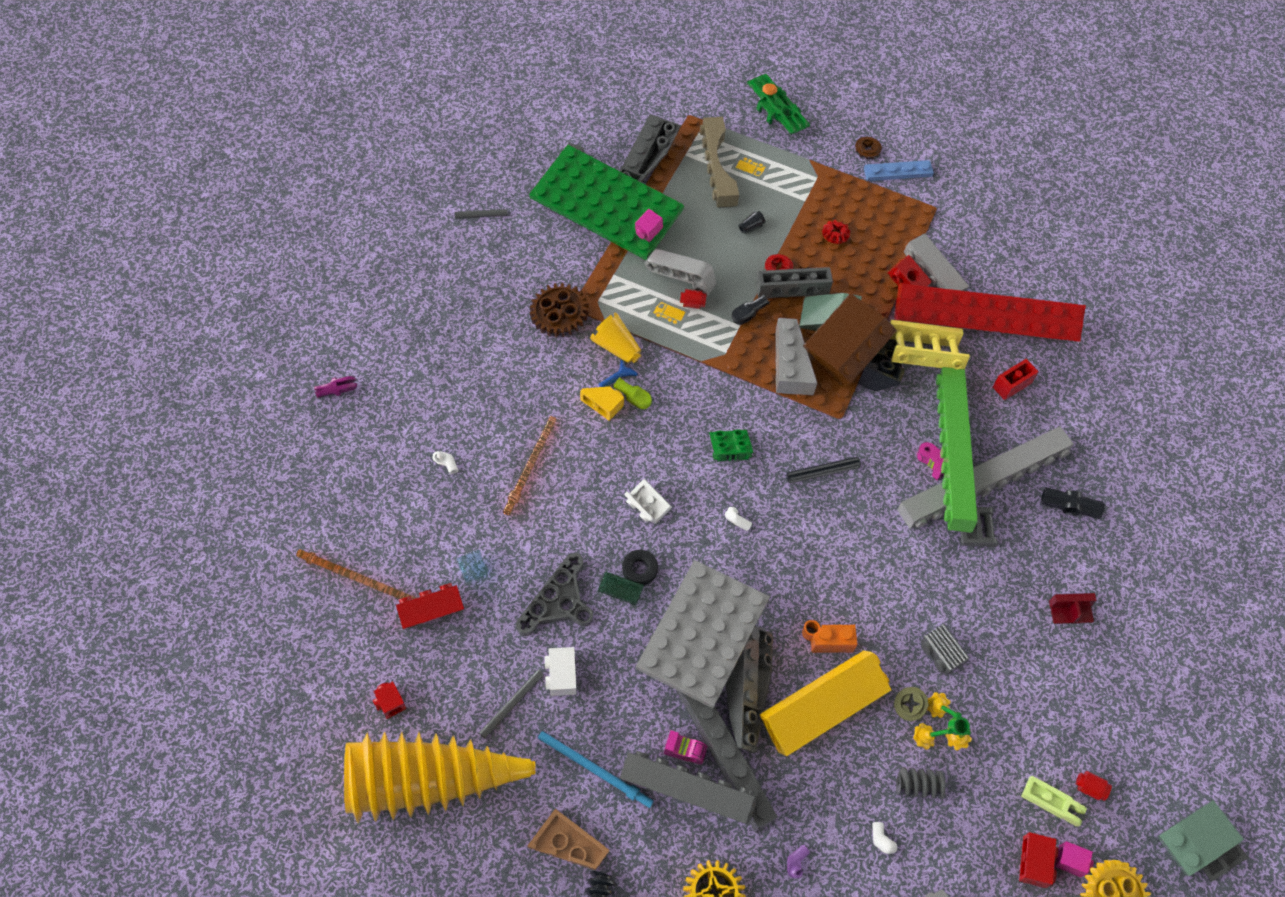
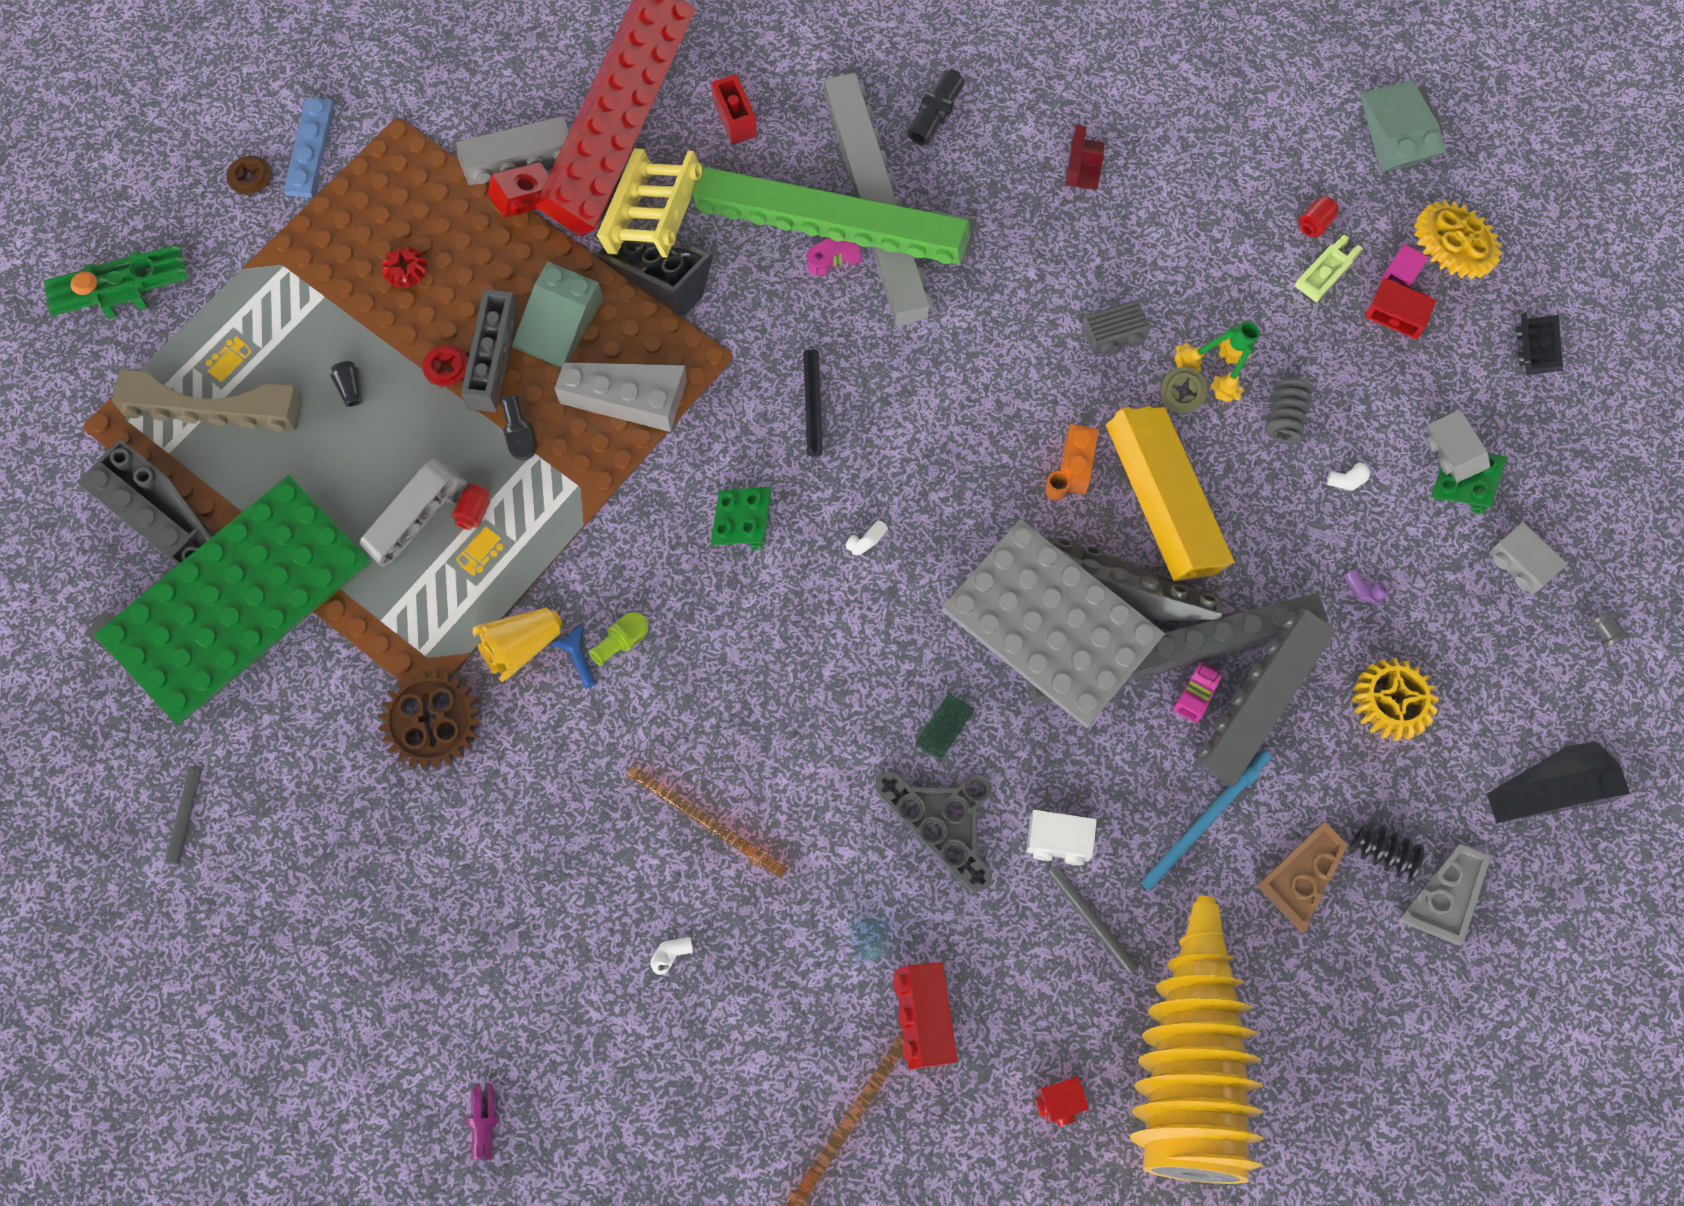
camera: 75 degrees left, 10 degrees up
(603, 400) = (623, 684): yellow slope -> none
(644, 556) = (918, 675): black tyre -> none
(648, 225) = (319, 537): dark pink brick -> none
(648, 502) = (814, 657): white bracket -> none
(849, 339) = (623, 298): reddish brown slope -> none

